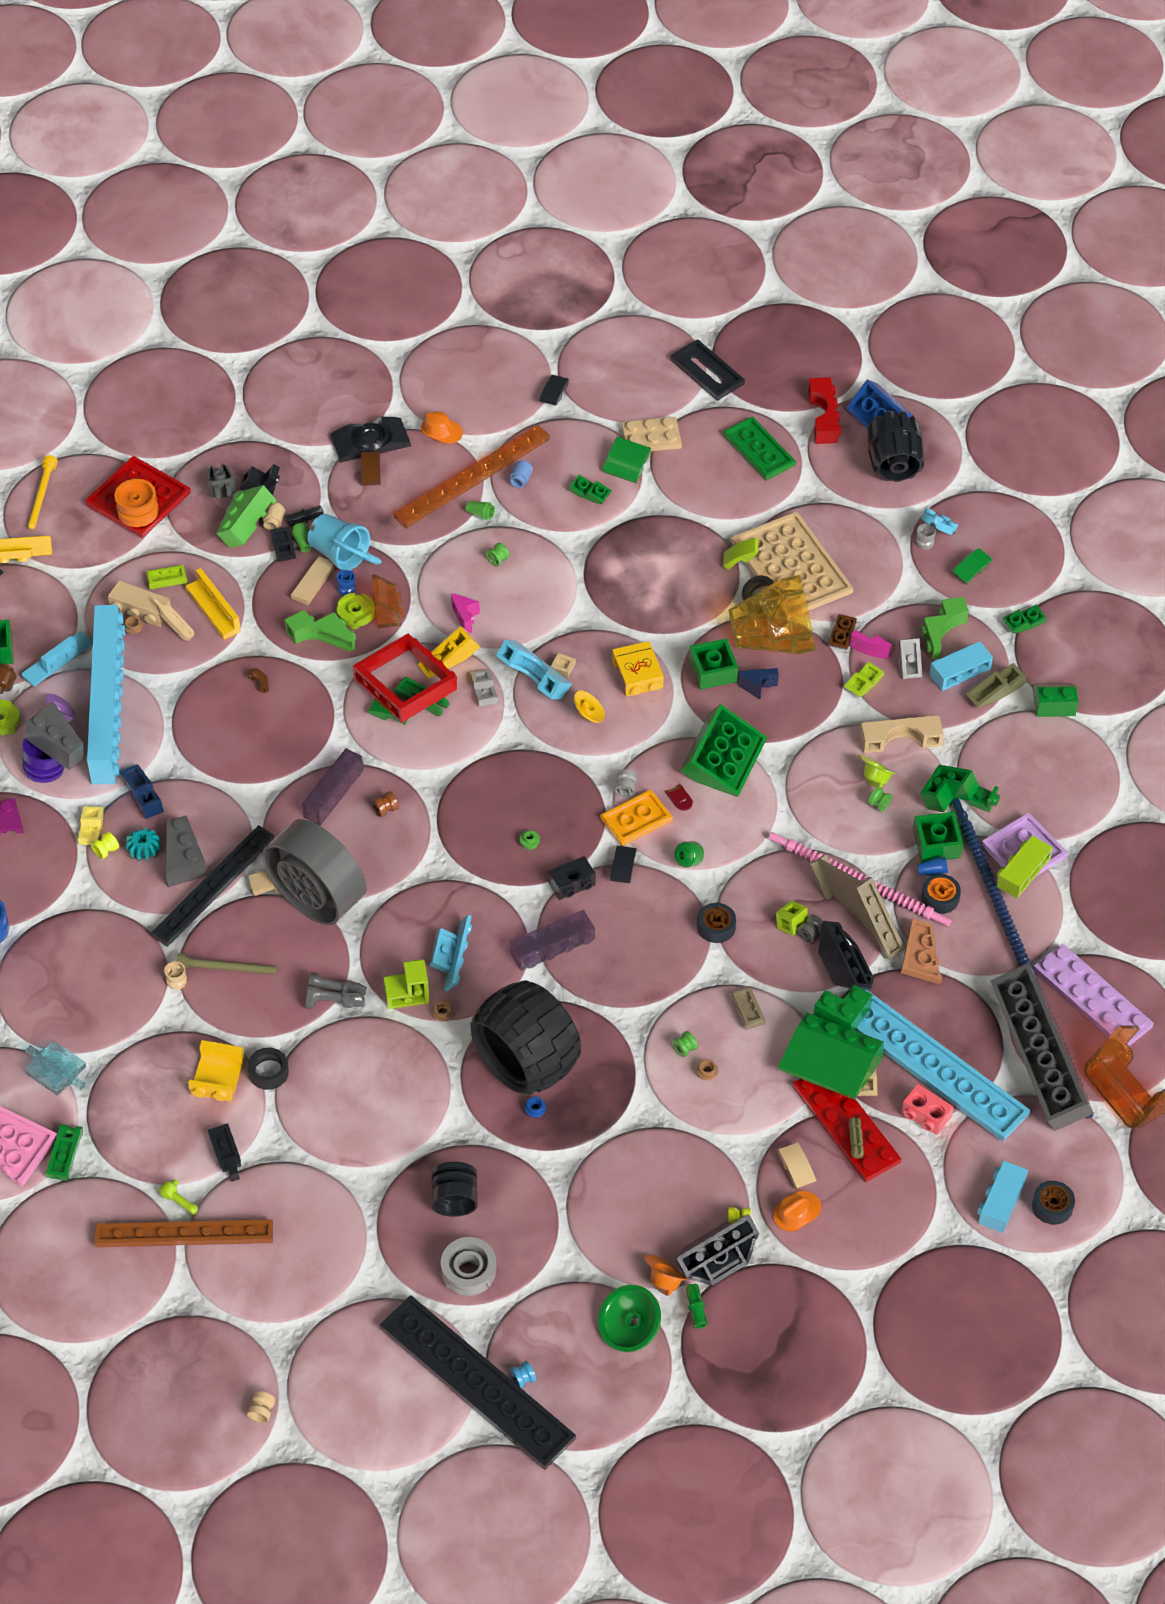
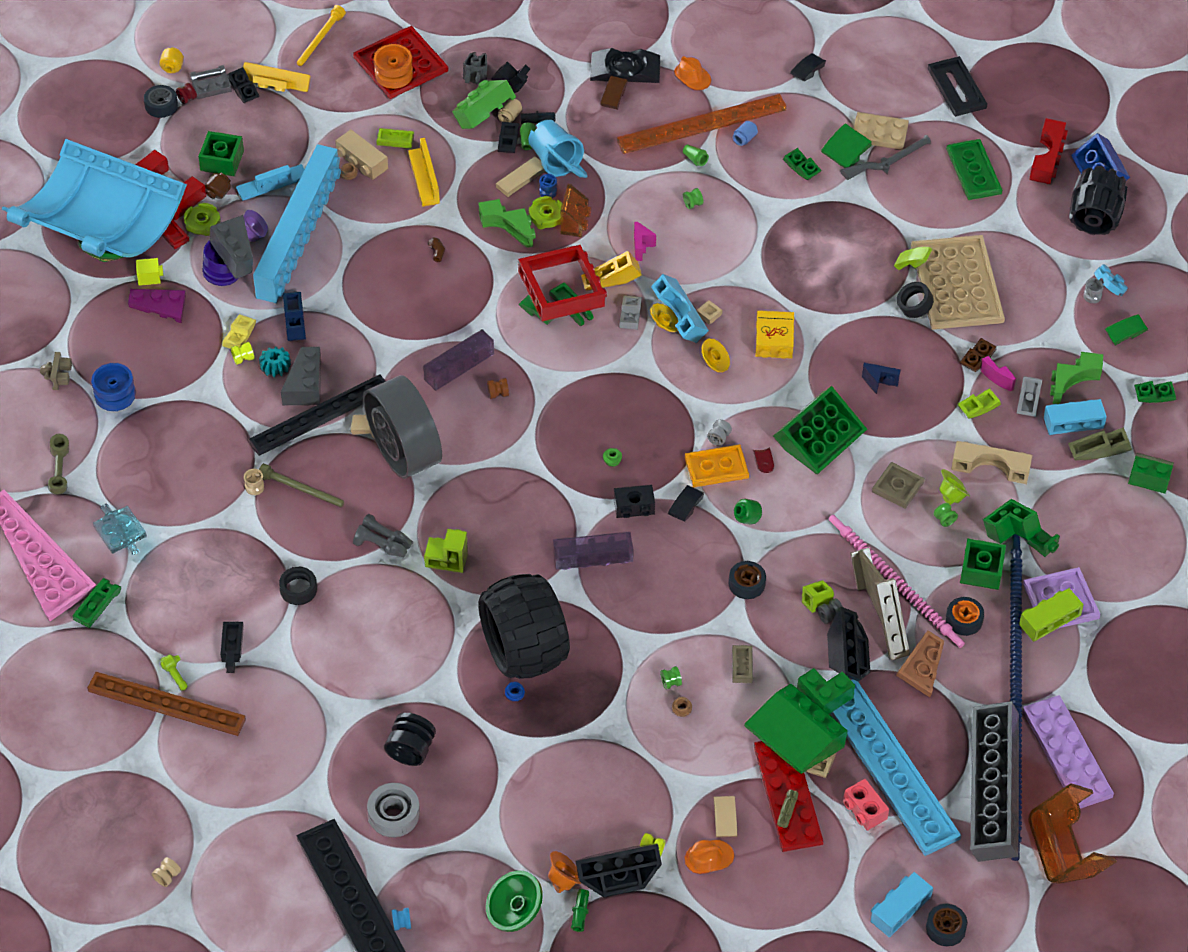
camera: 20 degrees right, 0 degrees up
(175, 621) = (384, 178): tan piece -> none
(217, 1071) = (254, 575): yellow panel -> none
(442, 1006) = (470, 578): medium nougat plate -> none
(449, 950) = (496, 532): medium azure bracket -> none
(522, 683) = (664, 317): none -> yellow dish
(671, 466) = (852, 171): none -> dark grey piece
(713, 664) = (844, 349): green brick -> none
(774, 619) = (917, 325): clear yellow wedge -> none
(821, 783) = (898, 485): none -> dark tan plate
(933, 866) = (968, 589): blue cone -> none

